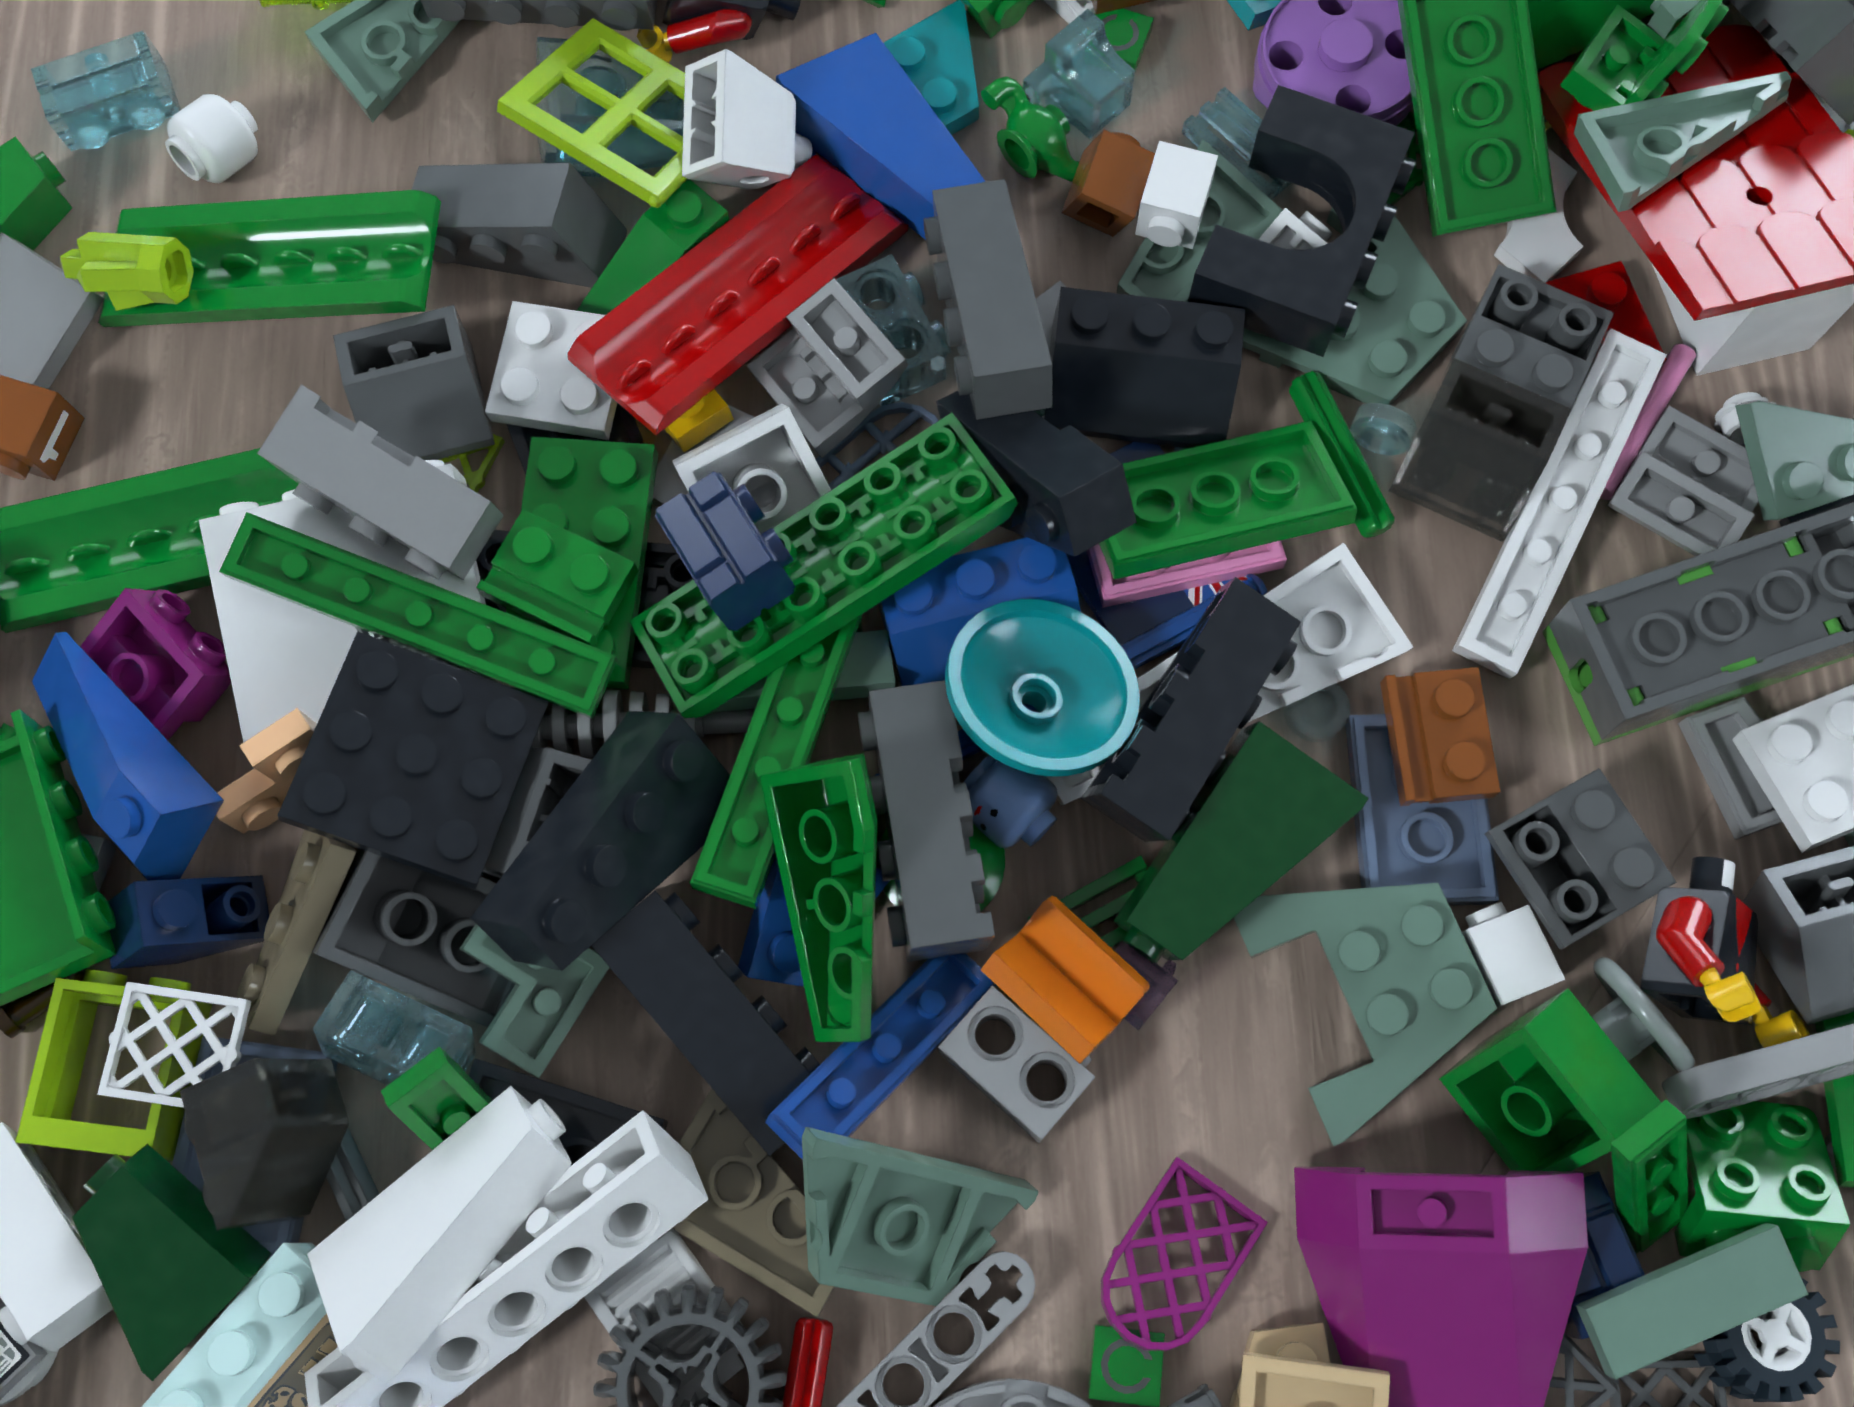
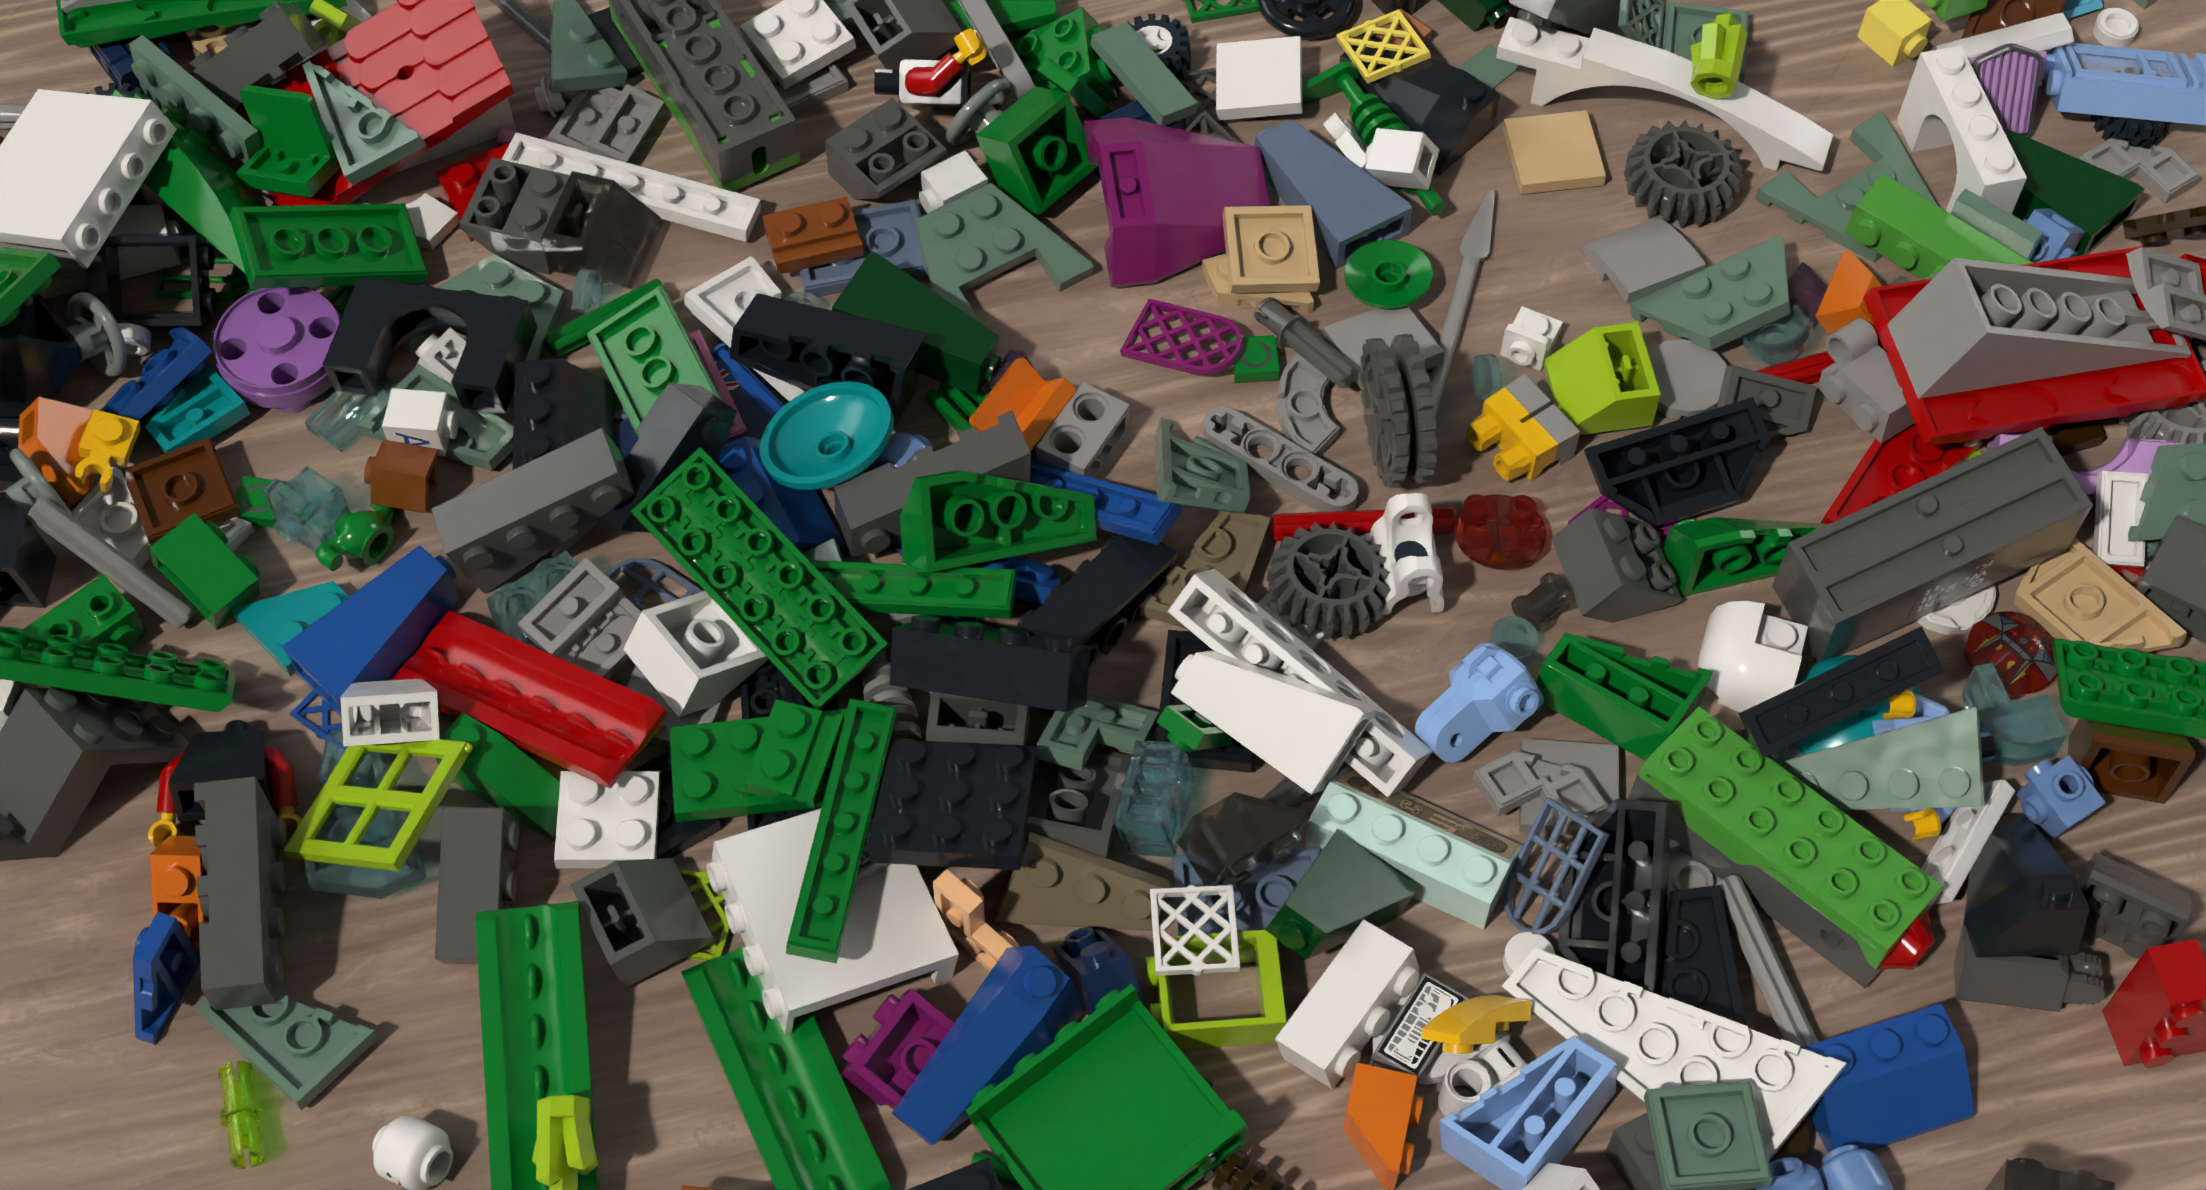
camera: 105 degrees left, 15 degrees down
(380, 487) = (750, 860): light grey wedge -> none
(725, 551) = (763, 623): dark blue brick -> none

